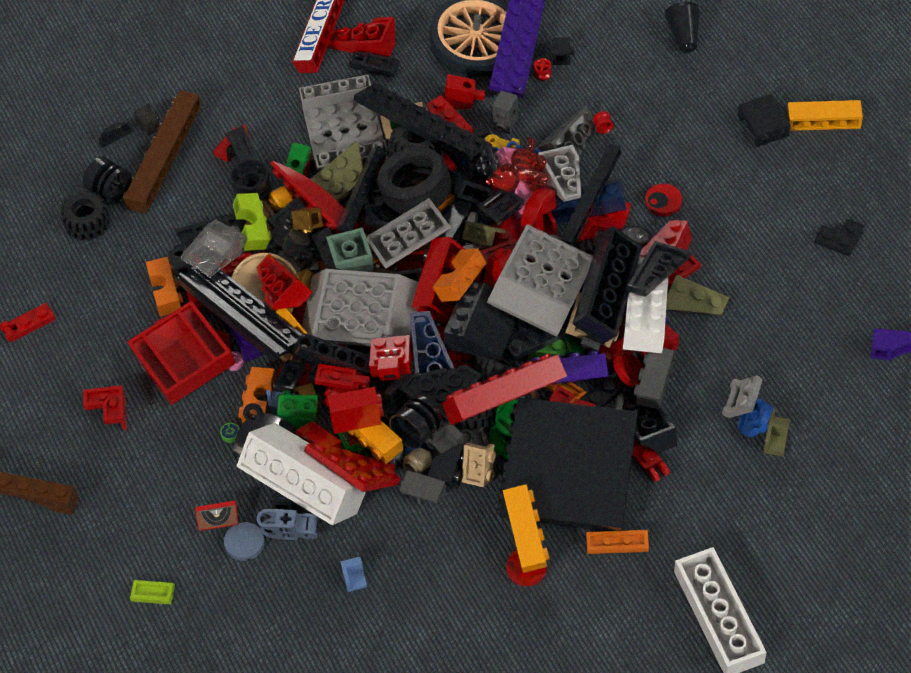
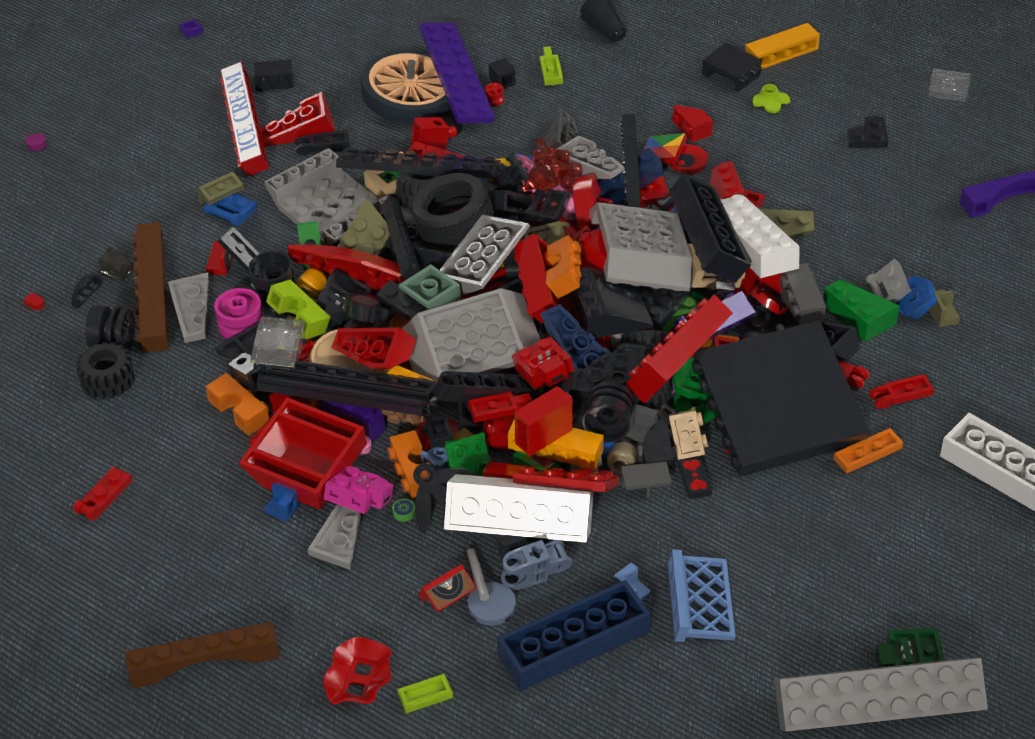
camera: 30 degrees left, 10 degrees down
(73, 129) = (34, 301): none -> red piece
(105, 548) = (343, 667): none -> red piece
(111, 400) = (255, 525): red panel -> none
(146, 388) = (283, 502): none -> blue panel
(169, 433) = (337, 537): none -> light grey wing
(182, 180) = (191, 305): none -> light grey wing
(202, 402) = (358, 490): none -> dark pink piece
(209, 202) = (237, 311): none -> dark pink wheel
(246, 513) = (477, 574): none -> light grey bar
(264, 80) = (220, 188): none -> olive panel
(270, 95) = (232, 208): none -> blue plate
(280, 596) = (573, 634): none -> dark blue brick
(307, 219) = (364, 280): pearl gold brick -> none
(381, 603) = (681, 602): none -> medium blue fence
(465, 503) = (694, 477): none -> black tile
(505, 112) = (488, 135): dark grey brick -> none
(516, 573) = (797, 509): red tile -> none
(525, 529) = (780, 467): light orange brick -> none
(603, 122) = (585, 116): red wheel -> none
(607, 59) = (550, 68): none -> lime hinge
(647, 181) = (667, 146): none -> tile
(656, 267) = (743, 198): black wing -> none
(684, 500) = (901, 391): none -> red hinge
(691, 165) = (692, 122): none -> red slope
(702, 410) = (860, 309): none -> green wedge
(777, 168) = (770, 99): none -> lime plate

